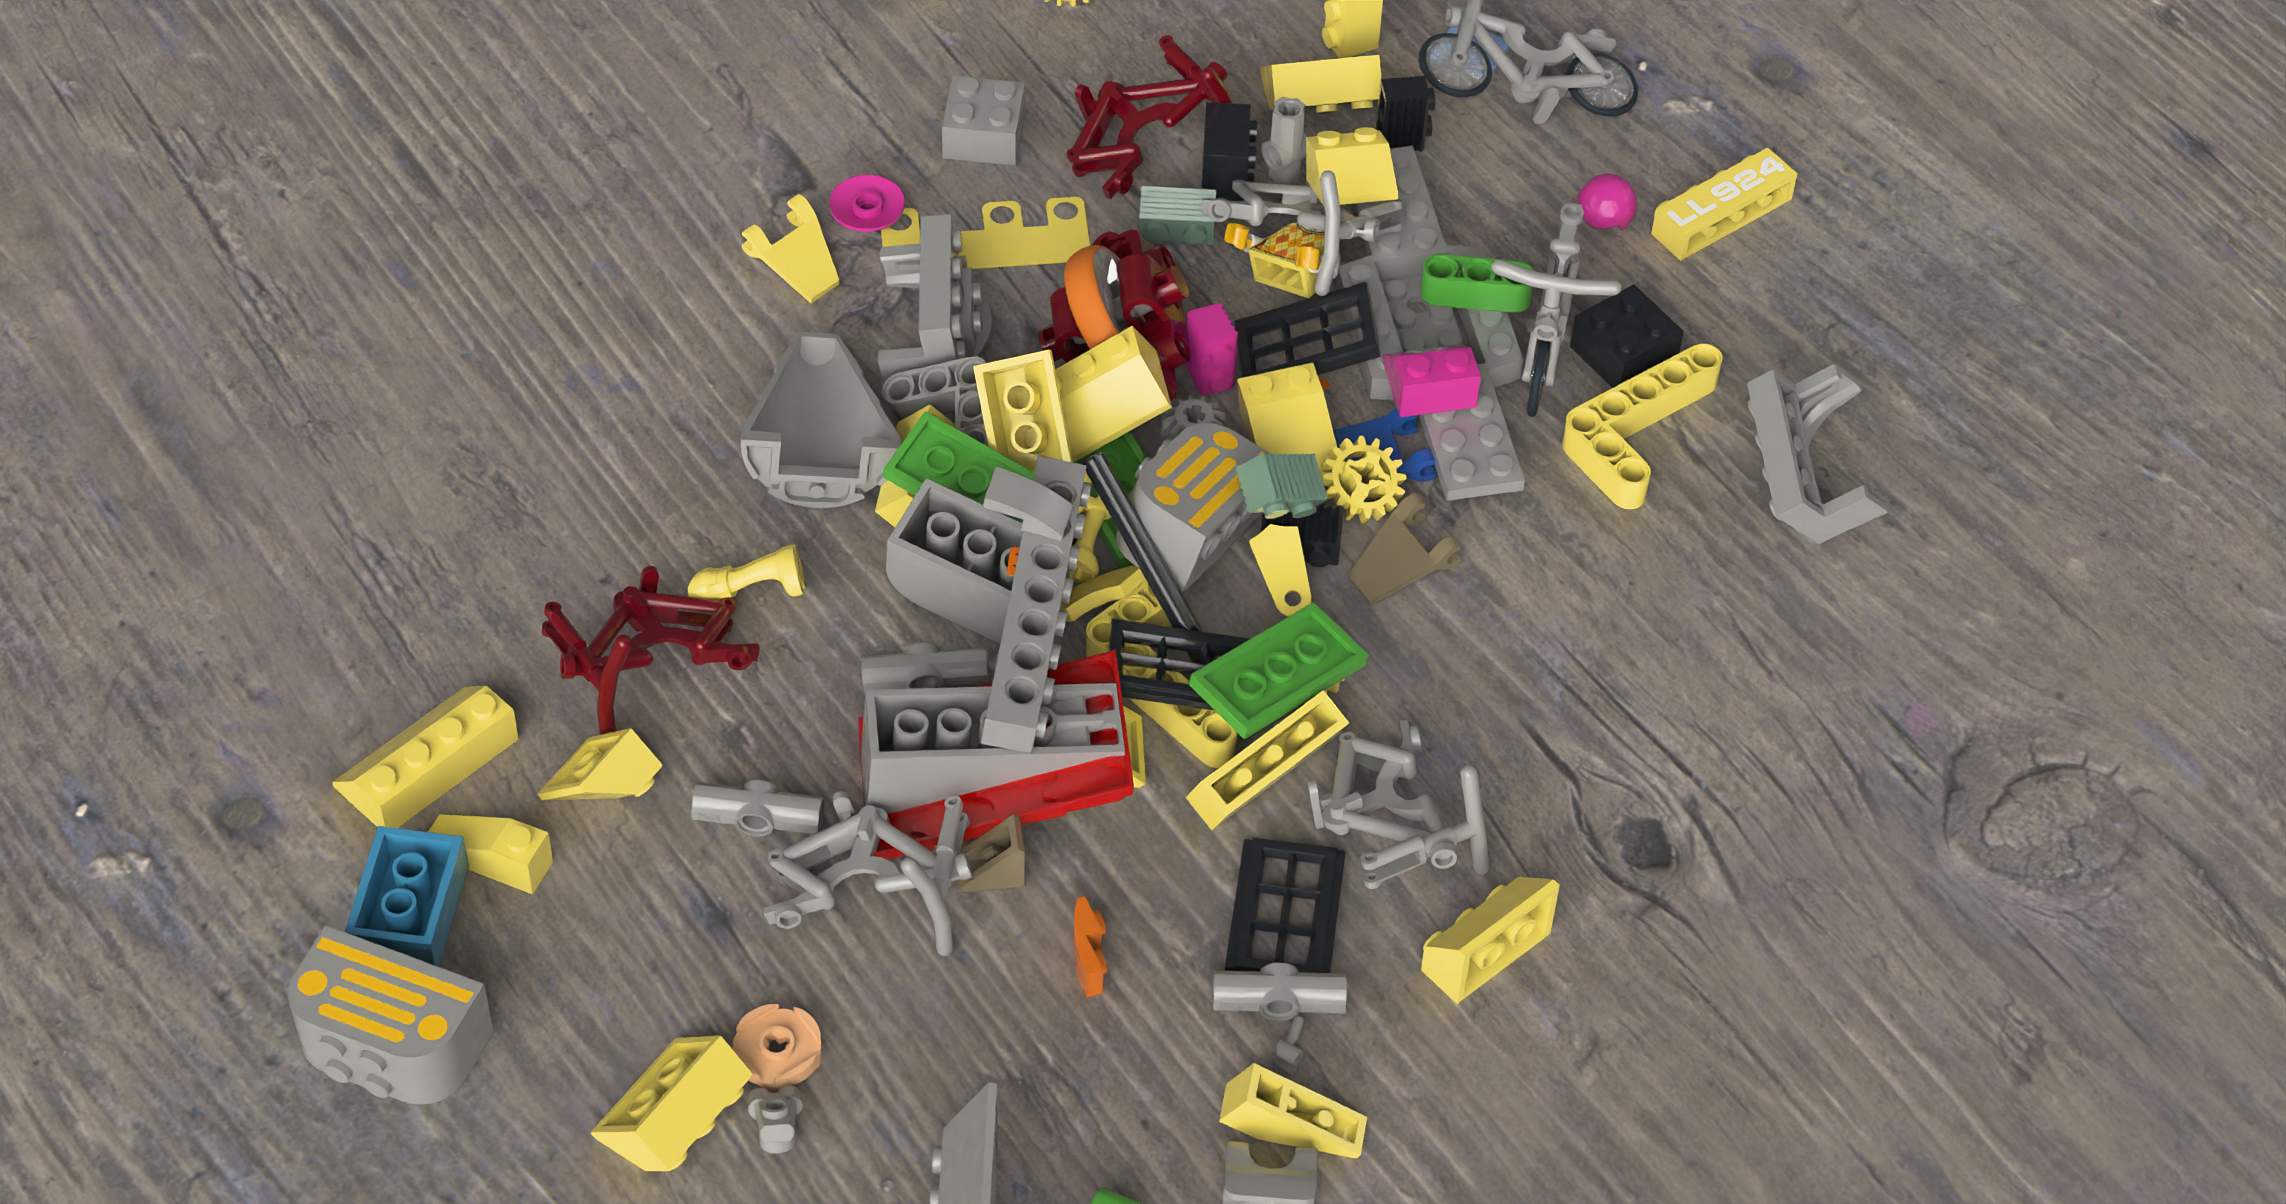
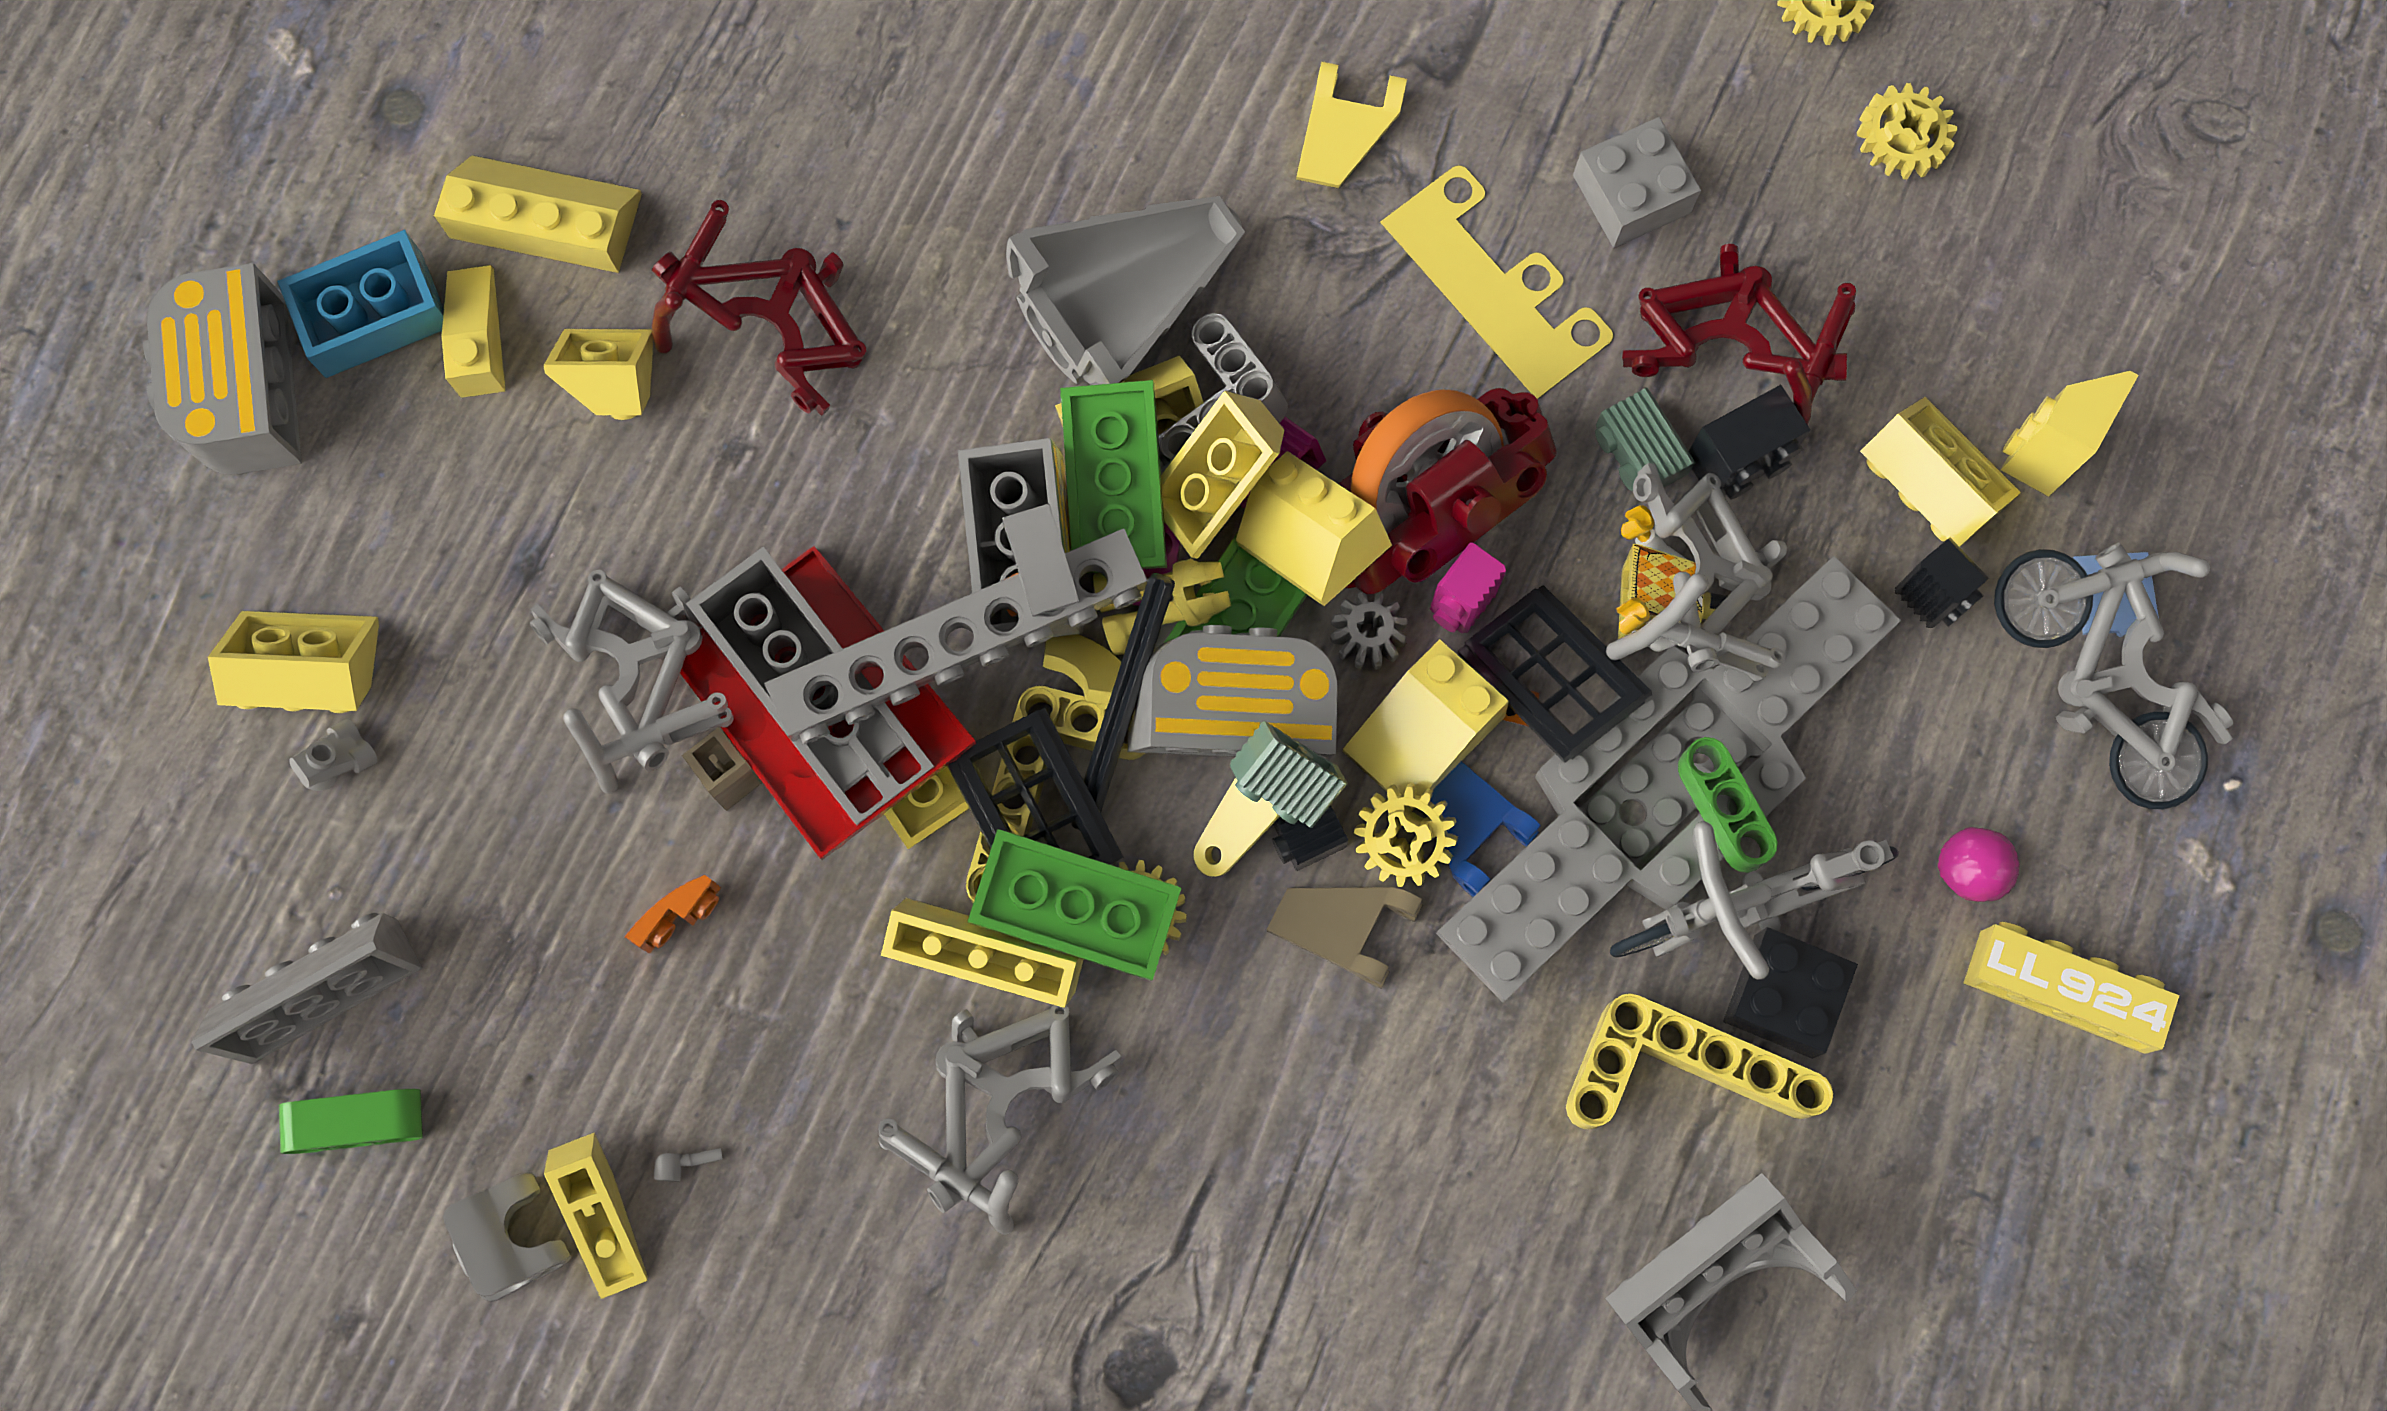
camera: 60 degrees right, 25 degrees up
(726, 581) = (923, 364): light yellow piece -> none
(757, 808) = (653, 525): light grey piece -> none
(781, 1068) = (402, 685): light nougat plate -> none
(867, 203) = (1449, 130): dark pink dish -> none
(924, 667) = (898, 561): light grey piece -> none
(943, 286) = (1383, 269): light grey piece -> none
(1247, 900) = (855, 1107): black piece -> none
(1279, 991) = (730, 1119): light grey piece -> none
(1287, 143) = (1788, 498): light grey piece -> none
(1358, 161) = (1787, 586): light yellow slope -> none
(1433, 379) = (1565, 829): dark pink slope -> none
(1490, 936) = (906, 1282): light yellow slope -> none

